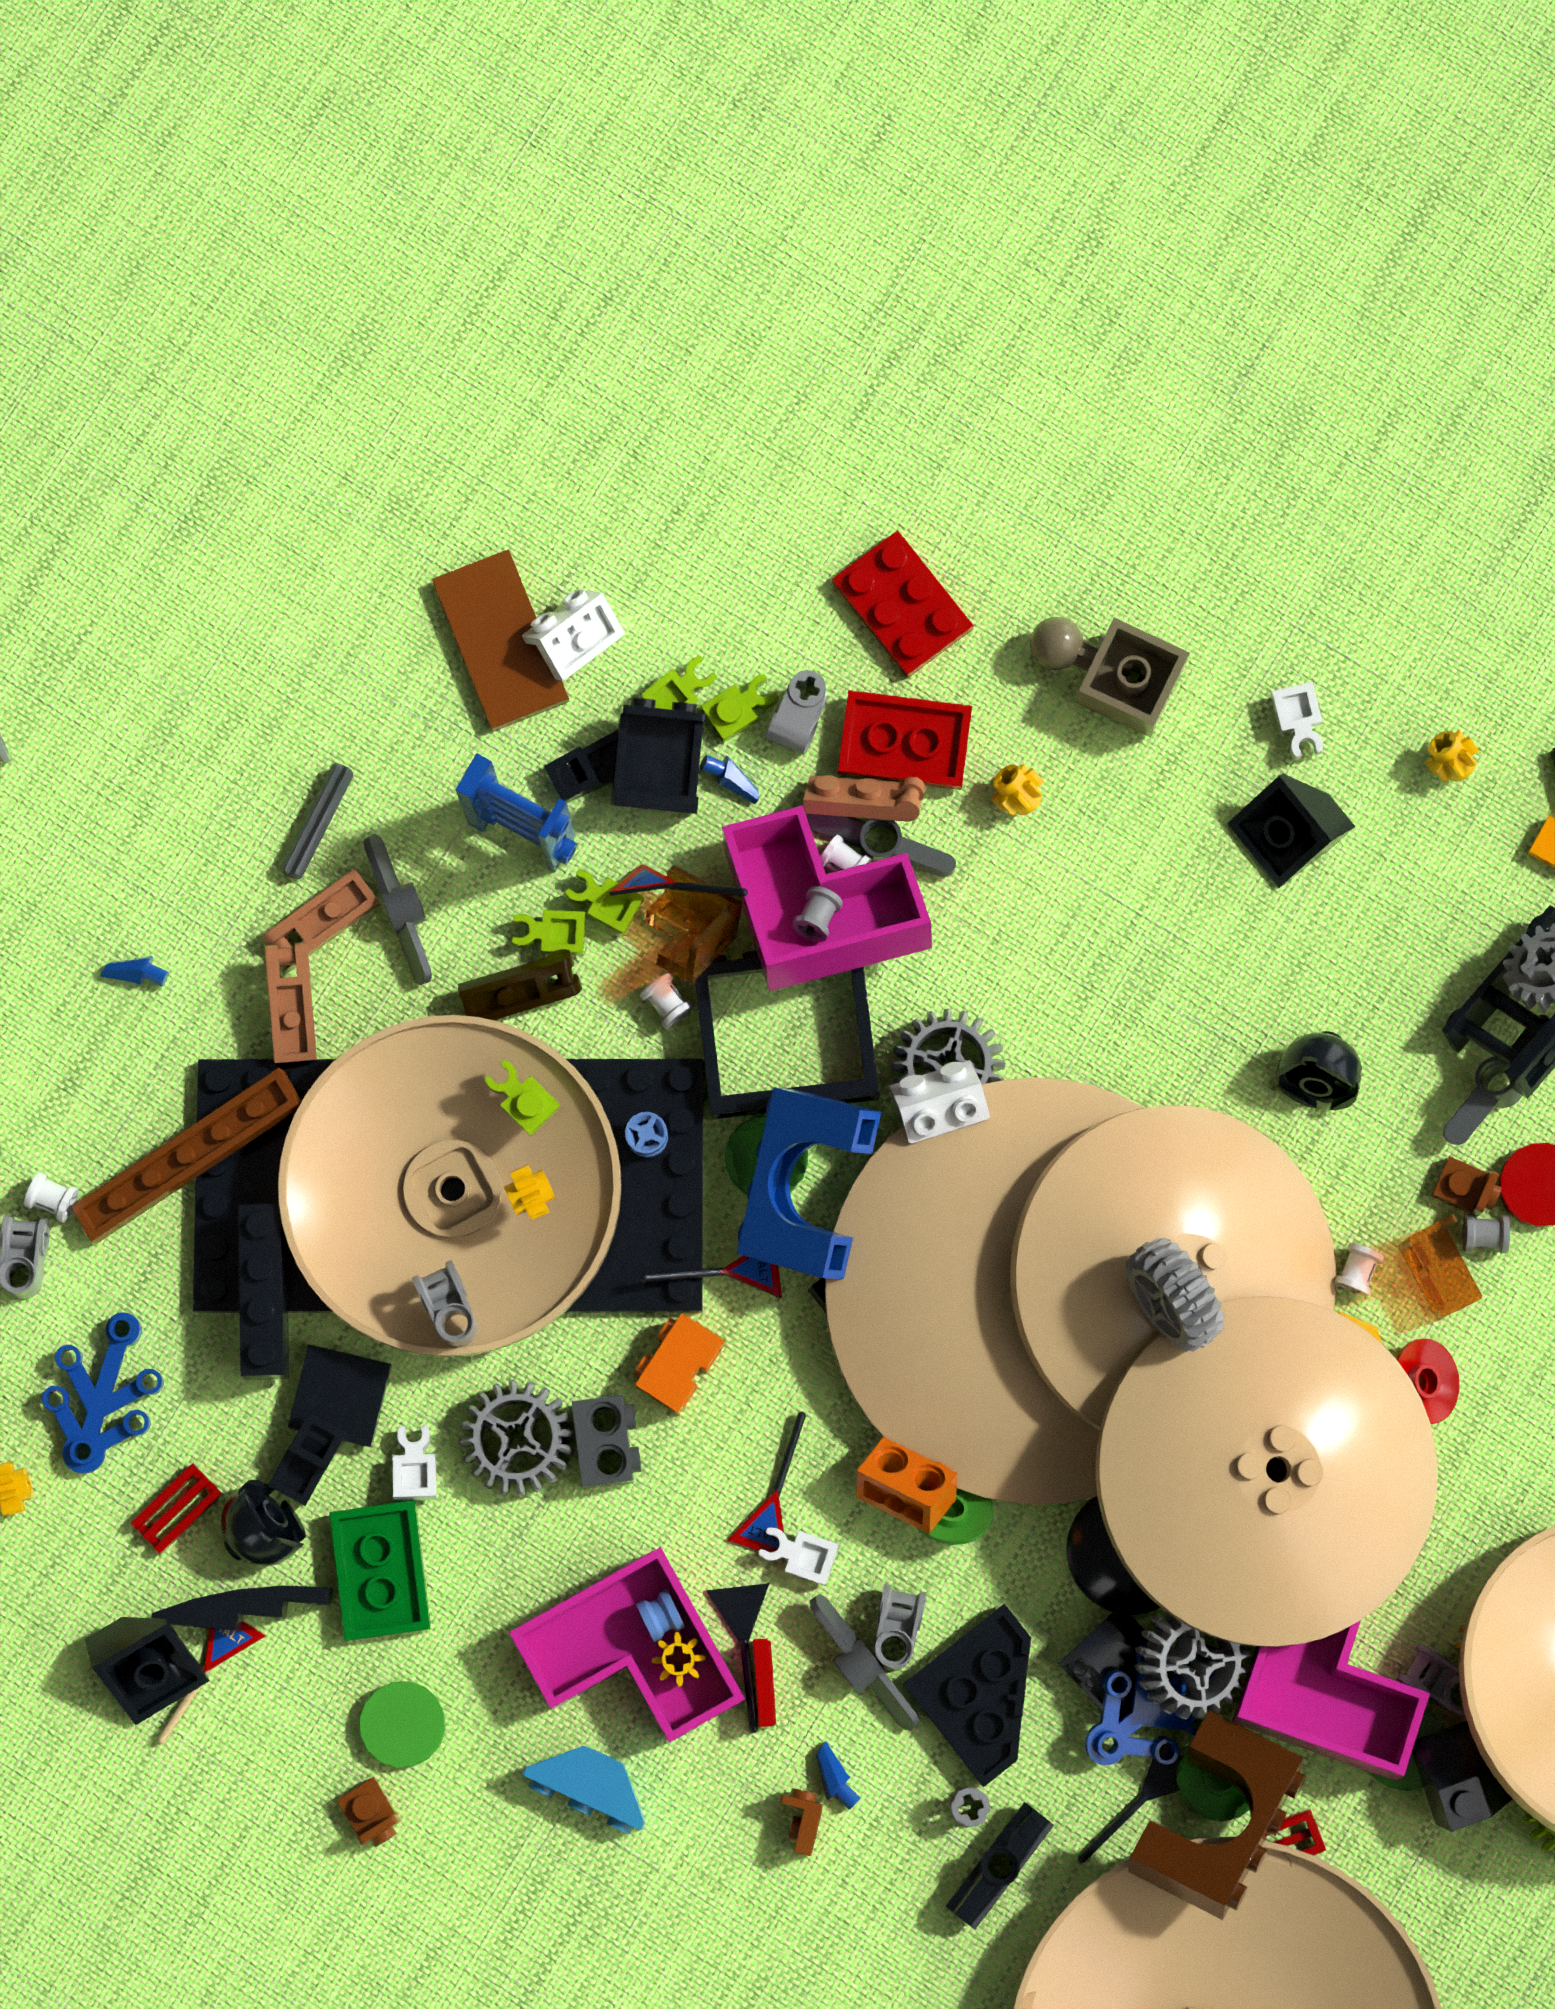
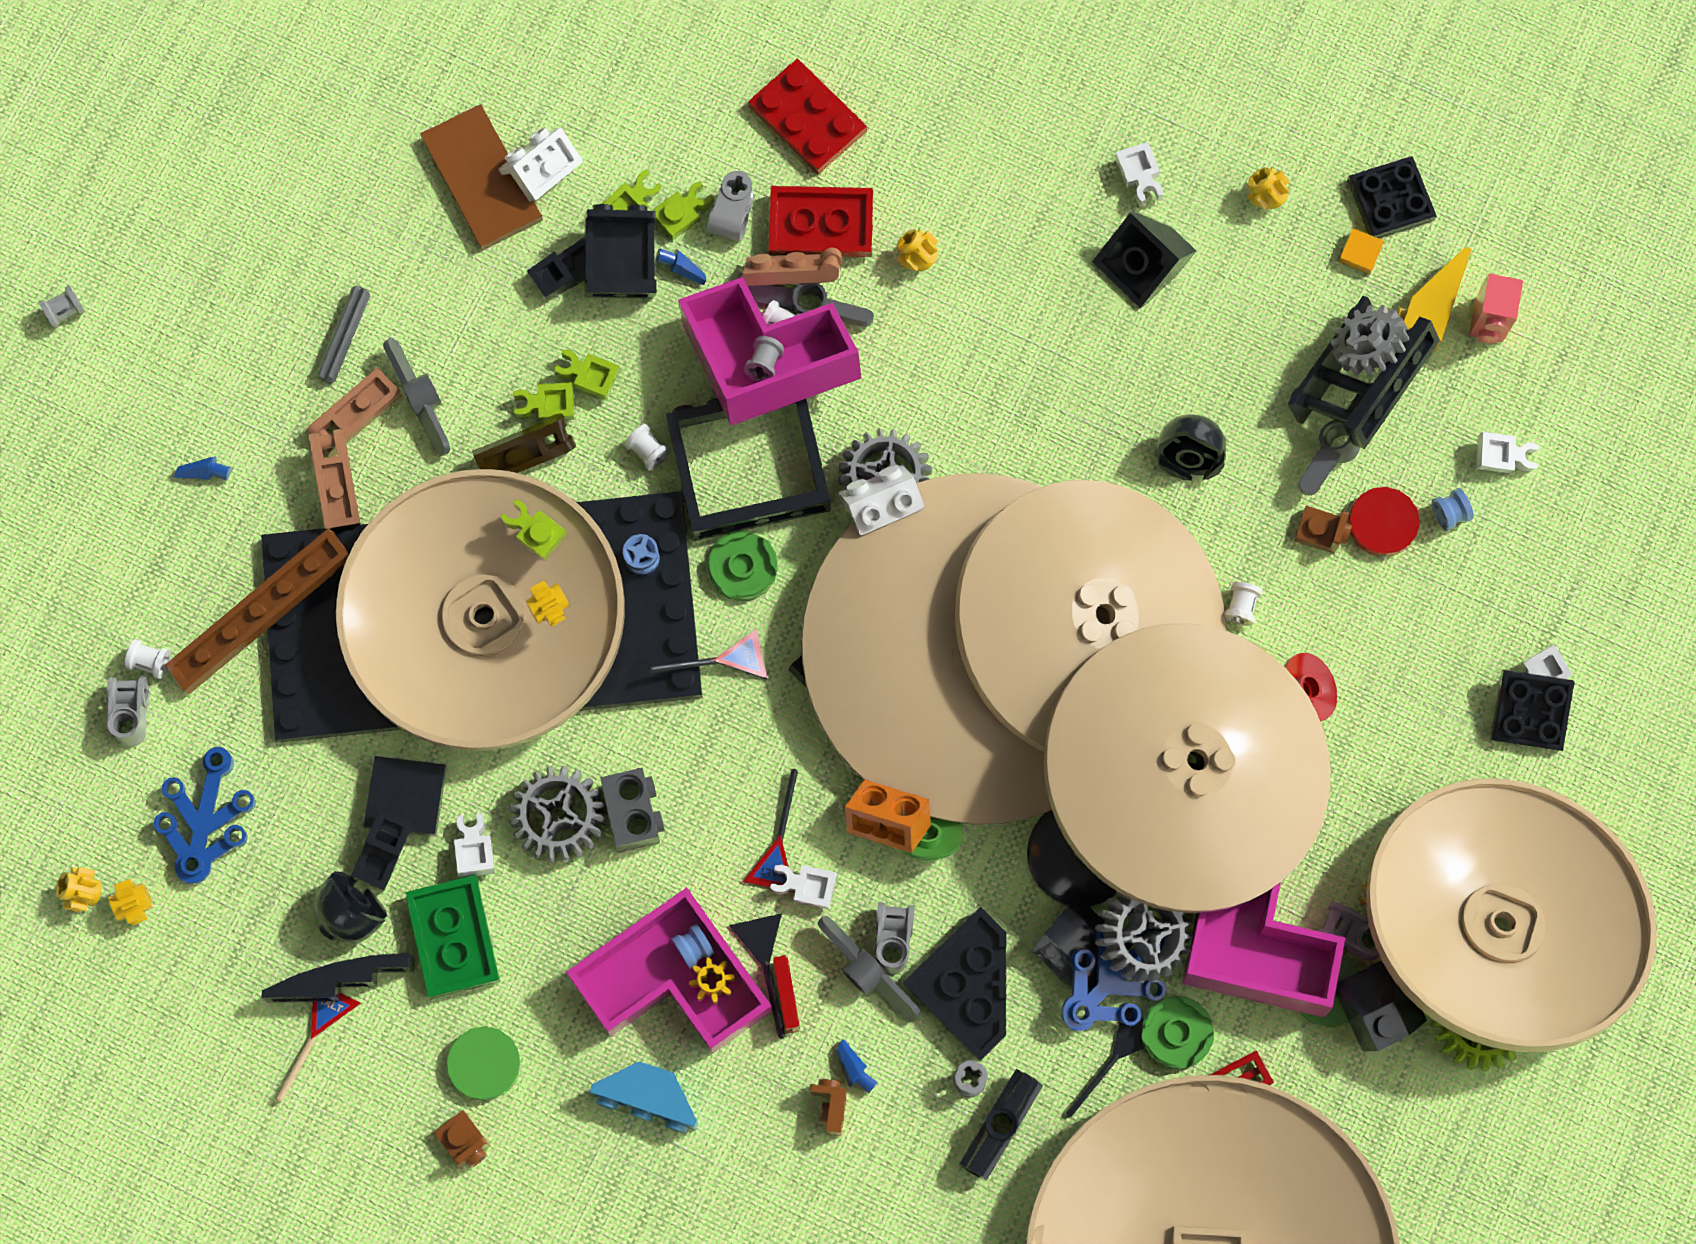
camera: 10 degrees left, 5 degrees down
(144, 1665) = (259, 1035): black slope -> none
(150, 1533) = (264, 897): red tile -> none
(263, 1293) = (332, 715): black brick -> none
(446, 1297) = (485, 698): light grey piece -> none
(492, 803) = (504, 301): blue fence -> none
(647, 879) = (621, 350): piece -> none
(683, 1352) = (682, 744): orange brick -> none
(697, 922) = (666, 379): clear orange panel -> none
(771, 1223) = (763, 531): blue arch -> none
(1125, 649) = (980, 159): dark tan brick -> none
(1175, 1294) = (1095, 623): light grey gear -> none
(1215, 1873) = (1184, 1104): reddish brown arch -> none
(1440, 1269) = (1308, 595): clear orange panel -> none
(1486, 1233) = (1343, 564): light grey bush -> none

